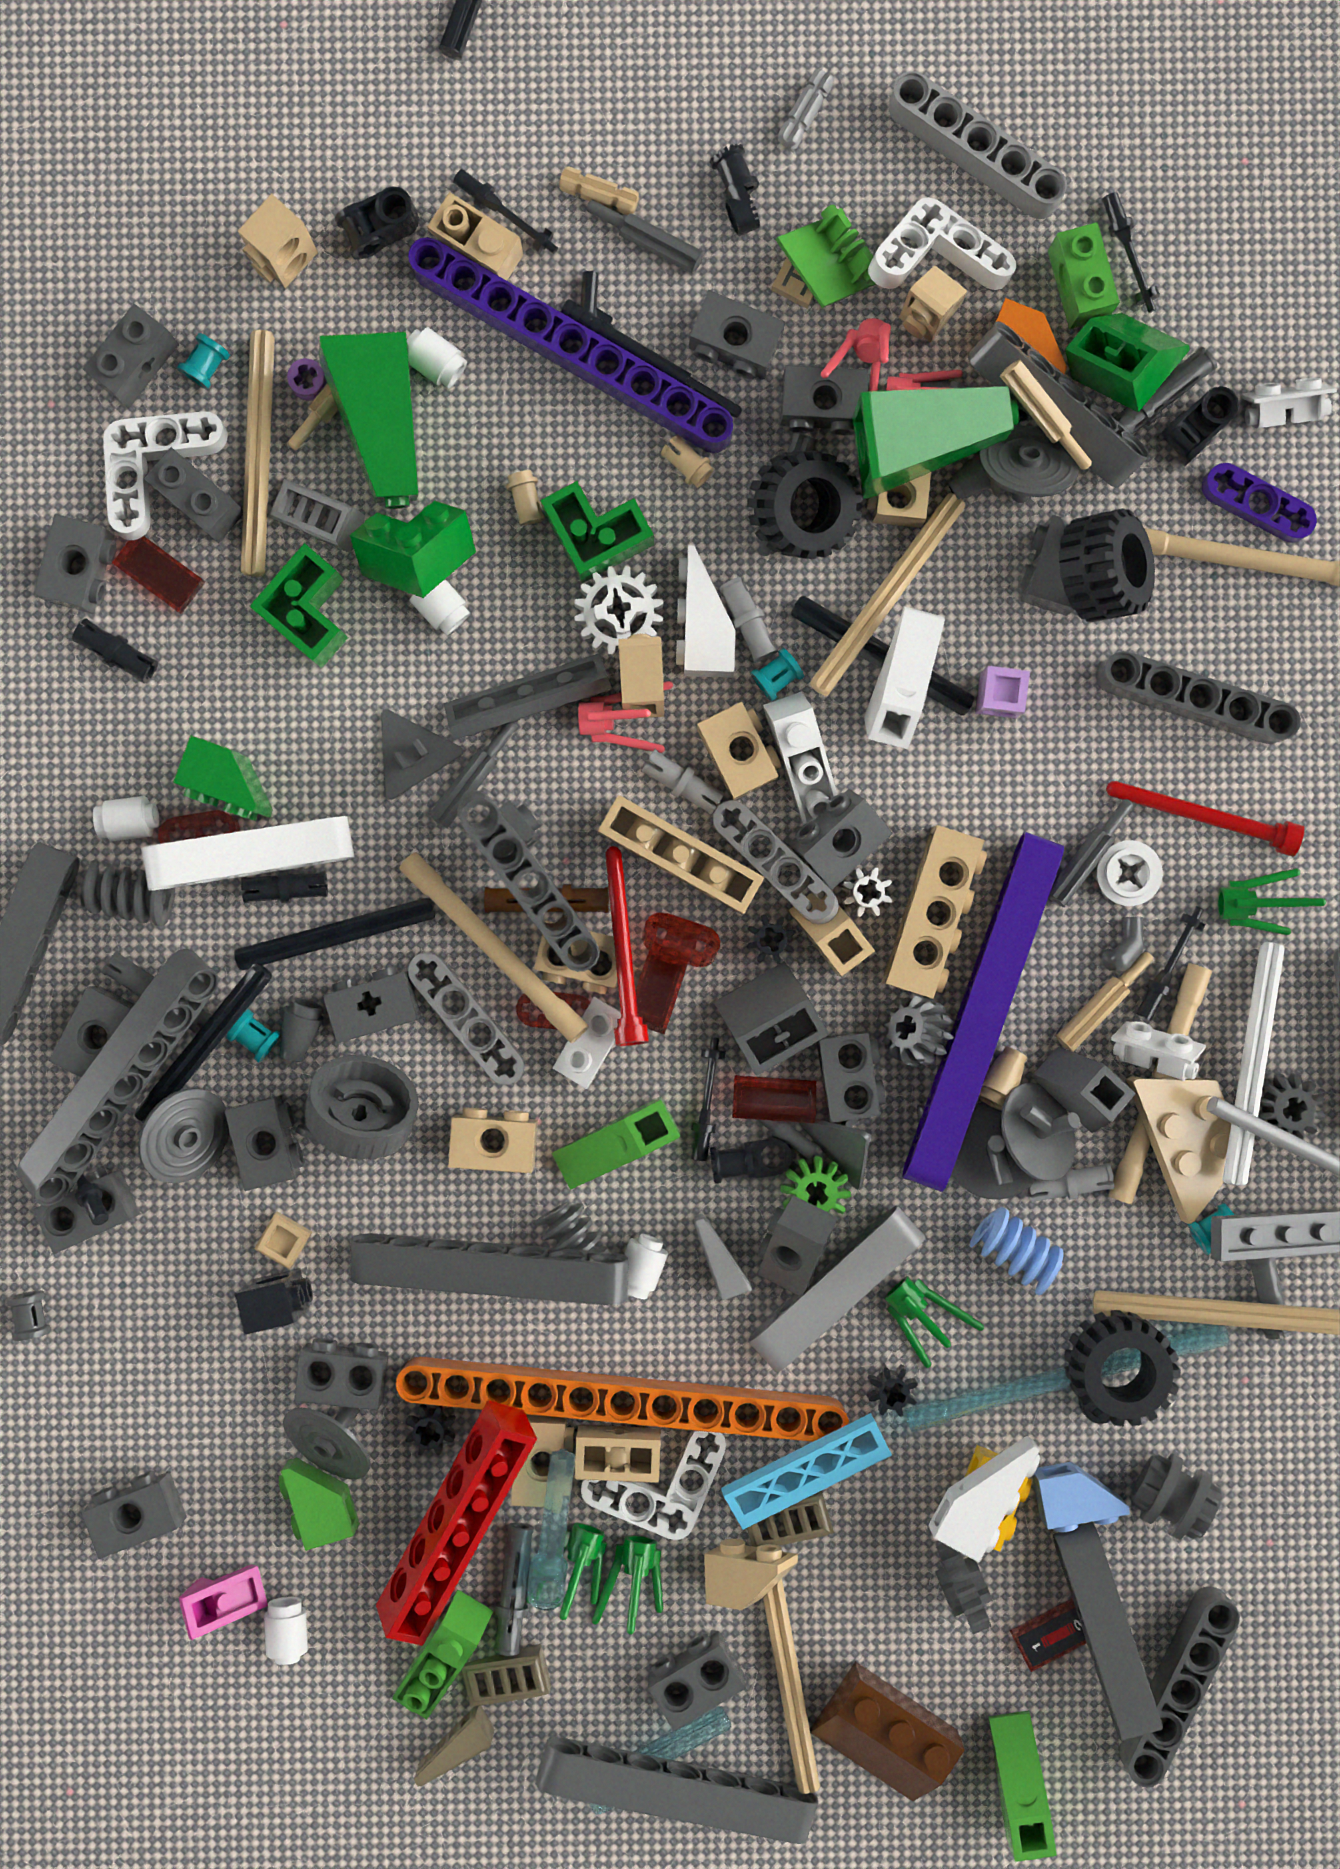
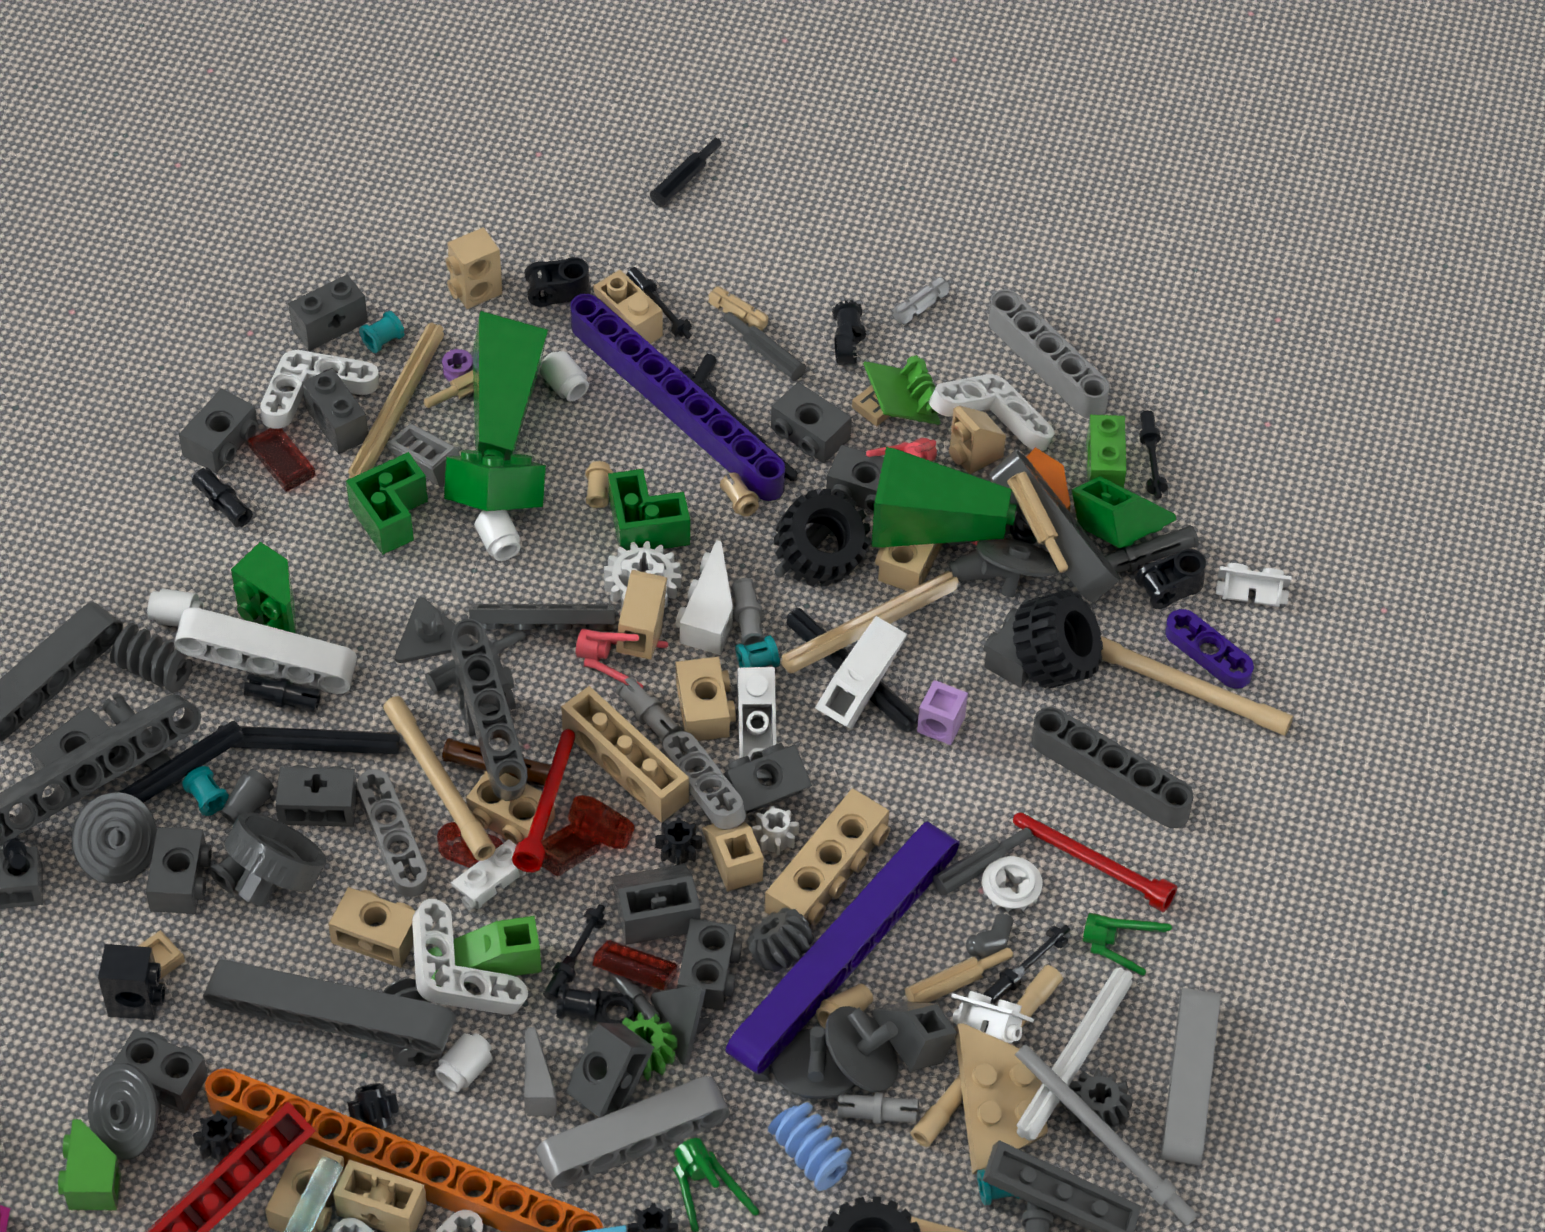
camera: 15 degrees right, 35 degrees down
(570, 1349) = (373, 1105): none -> black gear
(598, 1190) = (453, 977): none -> white beam

